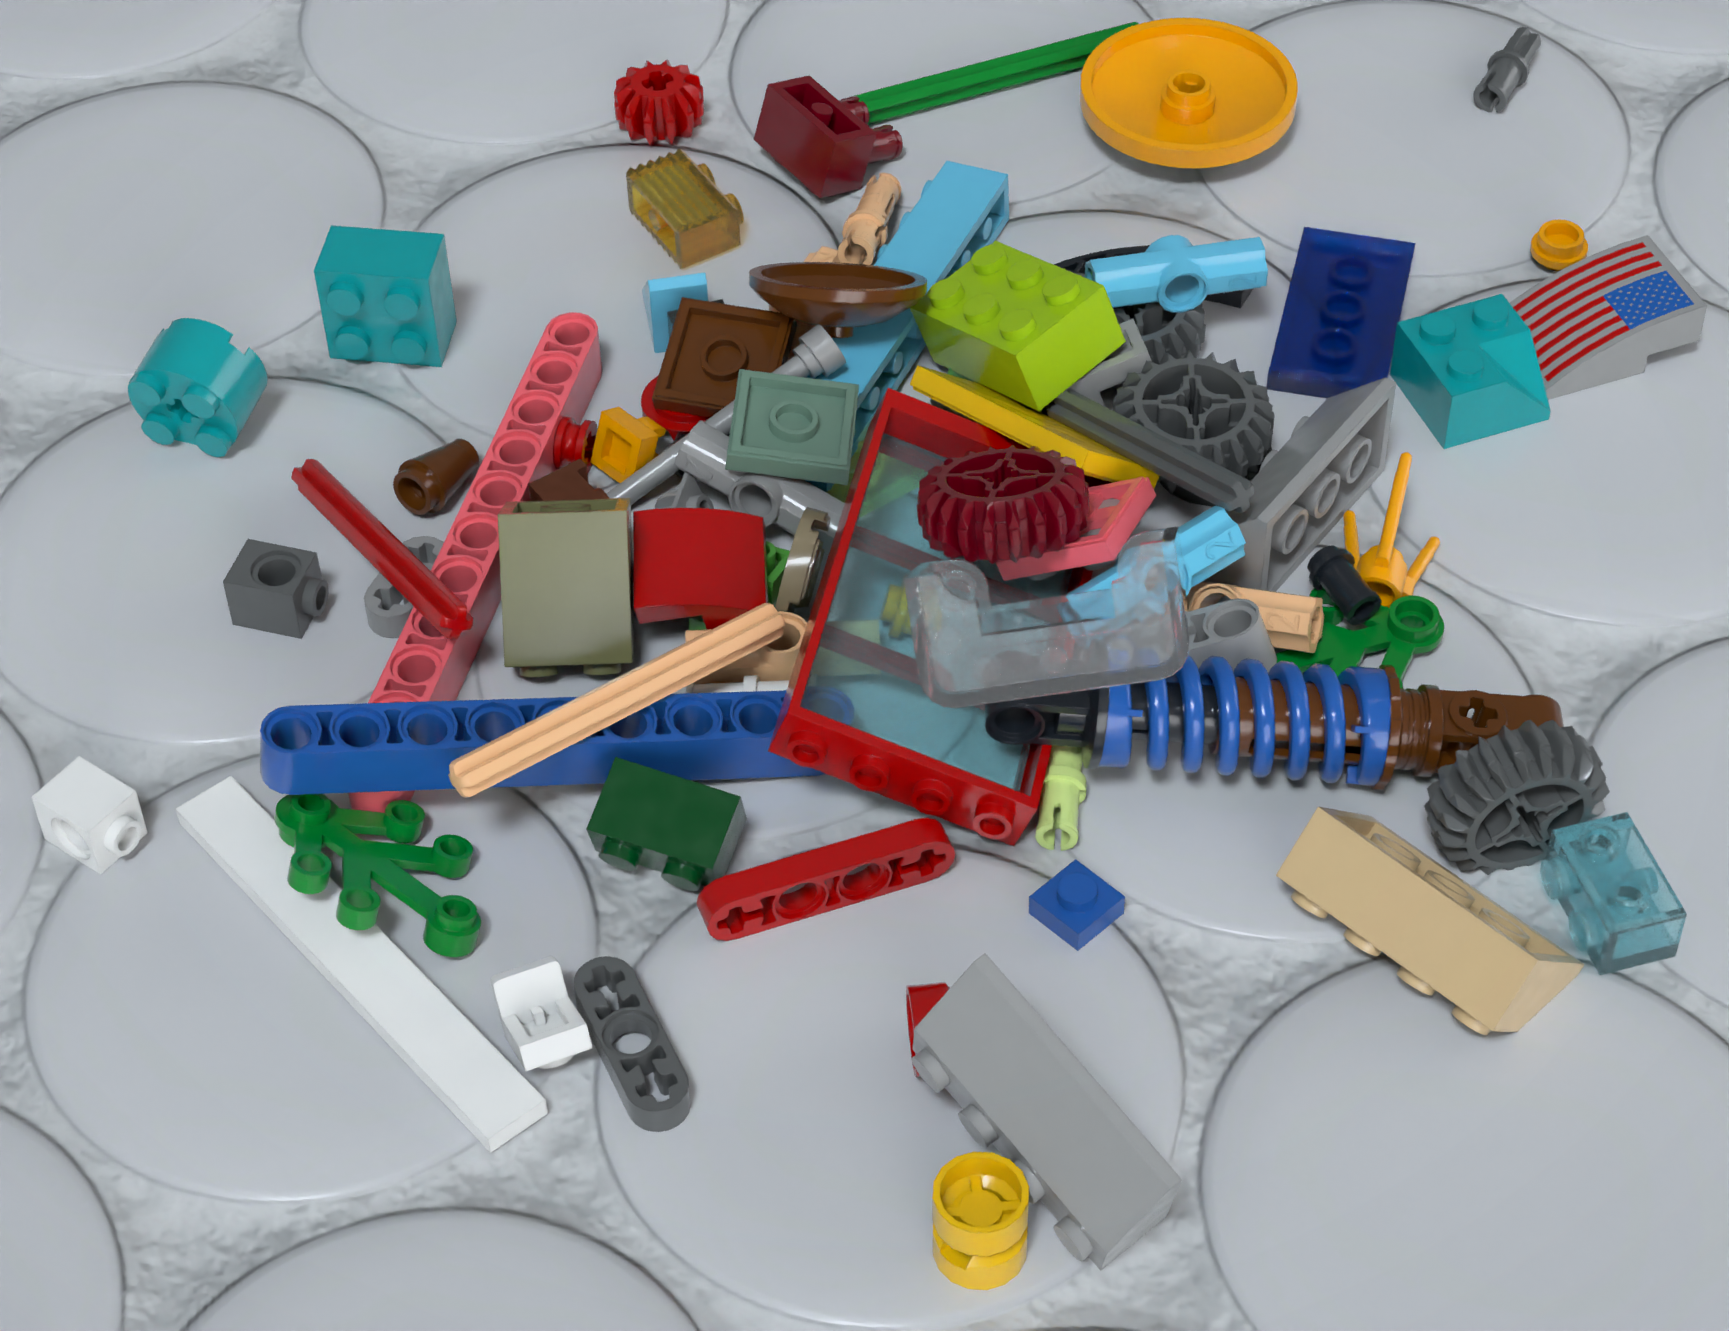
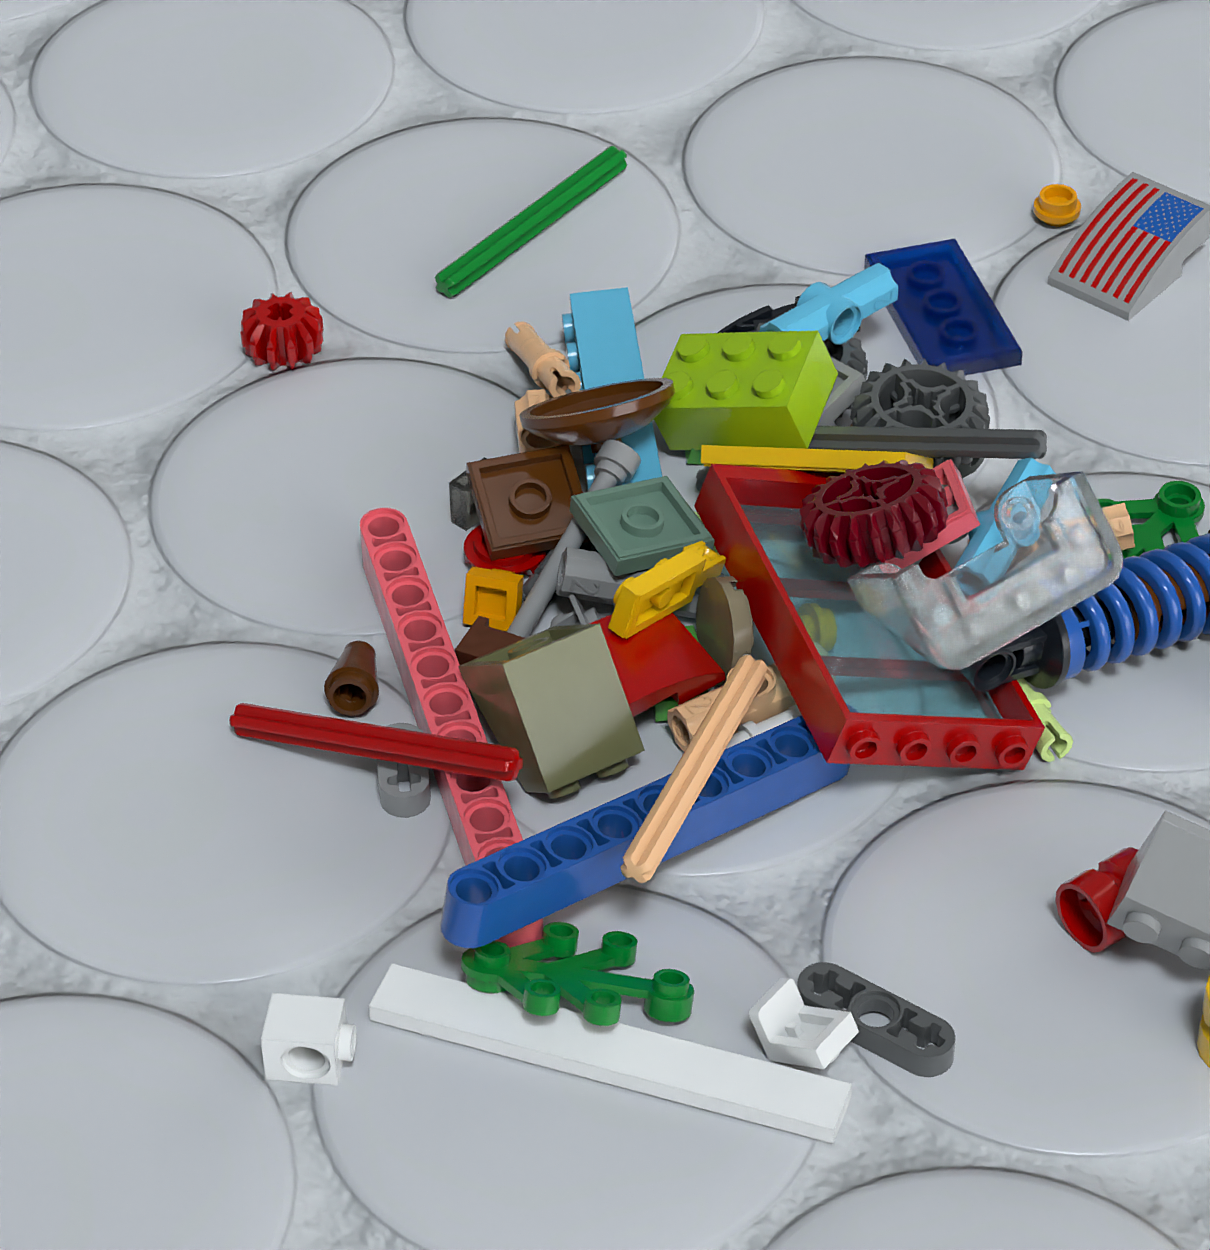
camera: 30 degrees left, 5 degrees down
(196, 386) = (103, 681): teal brick -> none
(275, 588) = (303, 811): dark grey brick -> none
(386, 295) = (204, 552): teal brick -> none
(574, 442) = (452, 609): red bush -> none
(665, 296) = (427, 483): medium azure slope -> none
(665, 825) = (780, 852): dark green brick -> none
(684, 208) = (375, 405): clear yellow brick -> none
(754, 500) = (663, 588): none -> yellow hinge
(755, 899) = (921, 844): red beam -> none
(822, 137) = (443, 312): dark red brick -> none
(1076, 905) = (1108, 788): blue plate -> none
(1188, 92) = (705, 183): light orange dish -> none
(1311, 484) = (1031, 399): light grey slope -> none
(1333, 572) = (1114, 489): black pin -> none
(1383, 564) = (1128, 473): light orange plant -> none
(1470, 371) = (1074, 313): teal slope -> none
(1507, 70) = (916, 92): dark grey axle -> none

